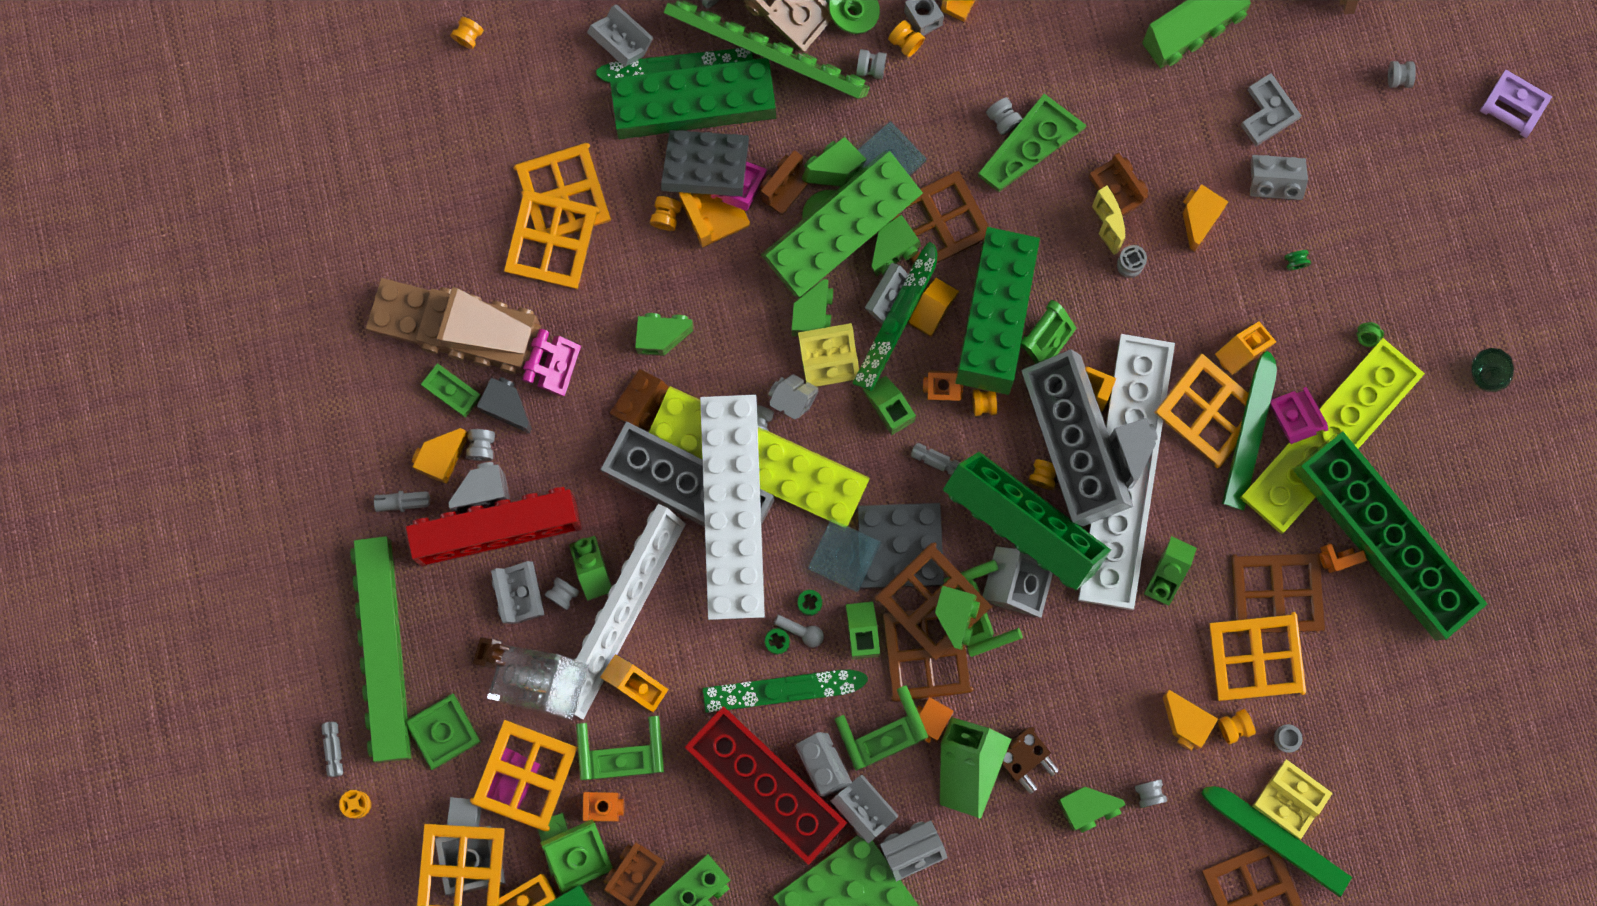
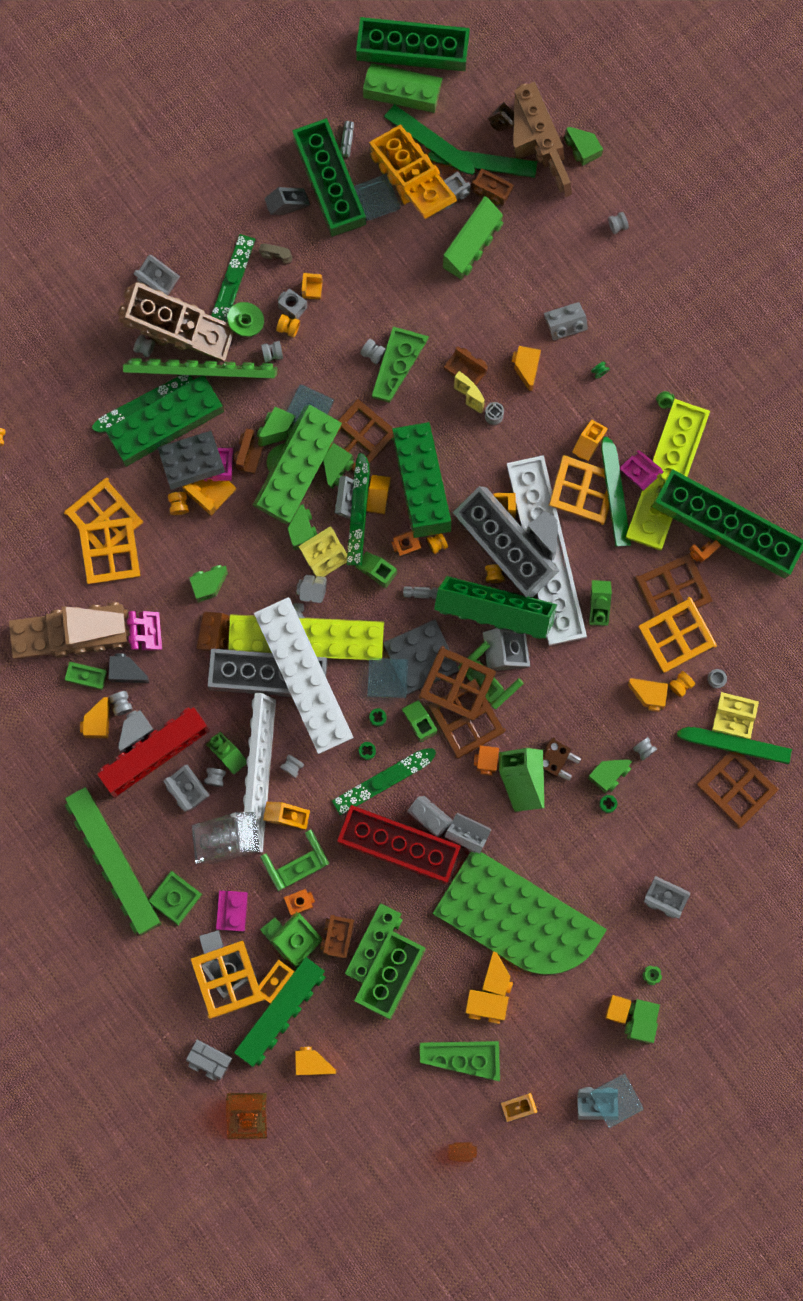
camera: 25 degrees left, 0 degrees up
(332, 749) = (107, 938): light grey axle -> none
(350, 801) = (134, 966): light orange wheel -> none
(401, 501) = (84, 760): light grey axle -> none
(490, 653) = (184, 834): reddish brown plate -> none
(524, 775) = (262, 902): light orange window -> none
(621, 36) = (99, 398): light grey bracket -> none
(669, 620) = (292, 766): none -> light grey wheel
(811, 636) = (387, 738): light grey bar -> none
(887, 739) = (464, 784): bright green plate -> none
(913, 850) = (509, 846): light grey brick -> none
(954, 613) = (474, 684): bright green slope -> none
(1049, 333) = (460, 481): bright green plate -> none
(1062, 849) = (613, 800): none -> green bush
(1276, 110) = (547, 278): light grey plate -> none
(1492, 370) = (751, 391): clear green hair -> none
(1521, 97) = (700, 207): lavender plate -> none

